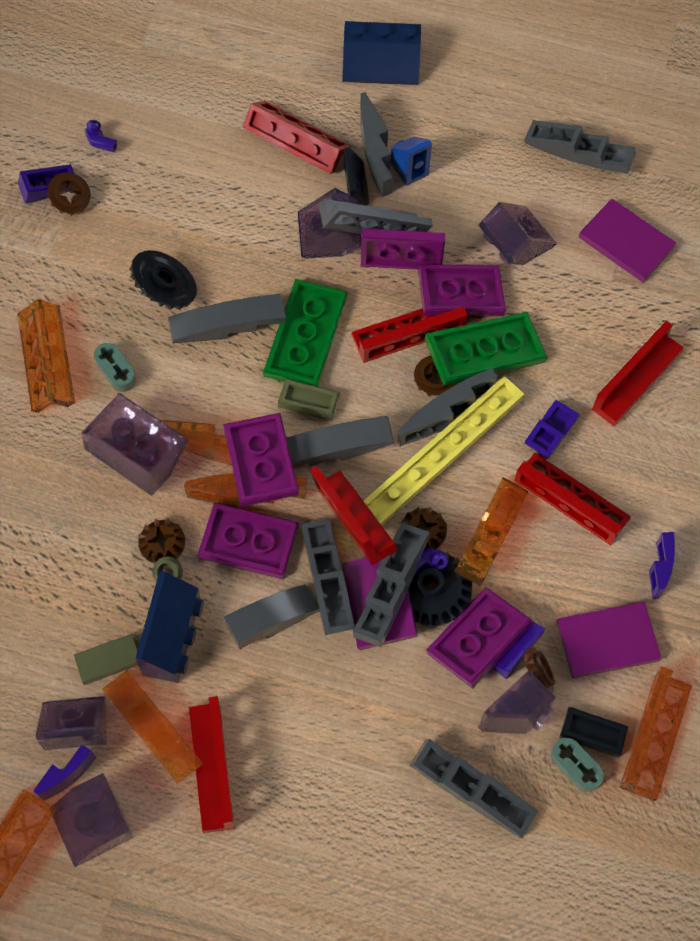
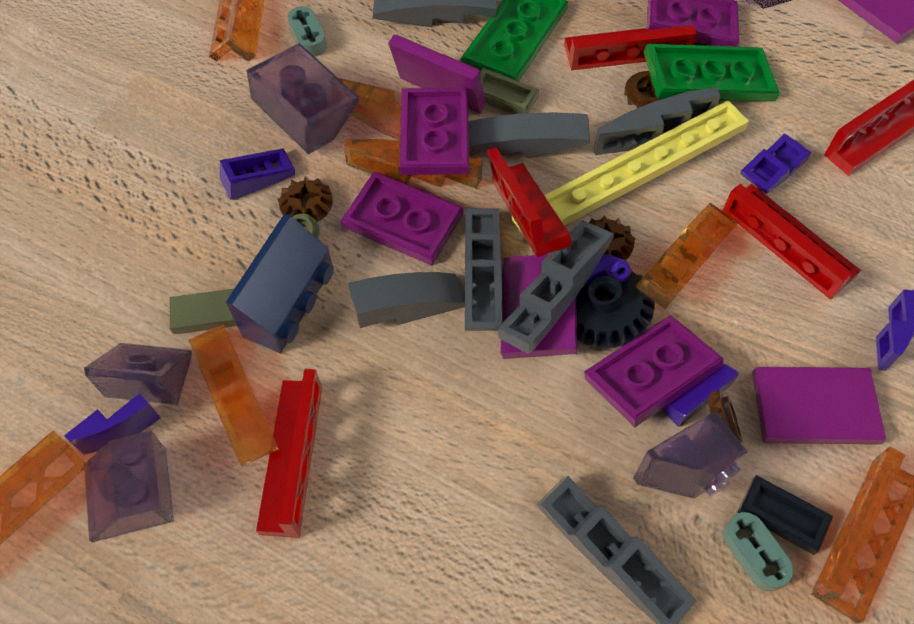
camera: 15 degrees right, 5 degrees down
(104, 535) = (239, 183): none -> dark purple slope
(248, 399) = (435, 70): none -> magenta tile

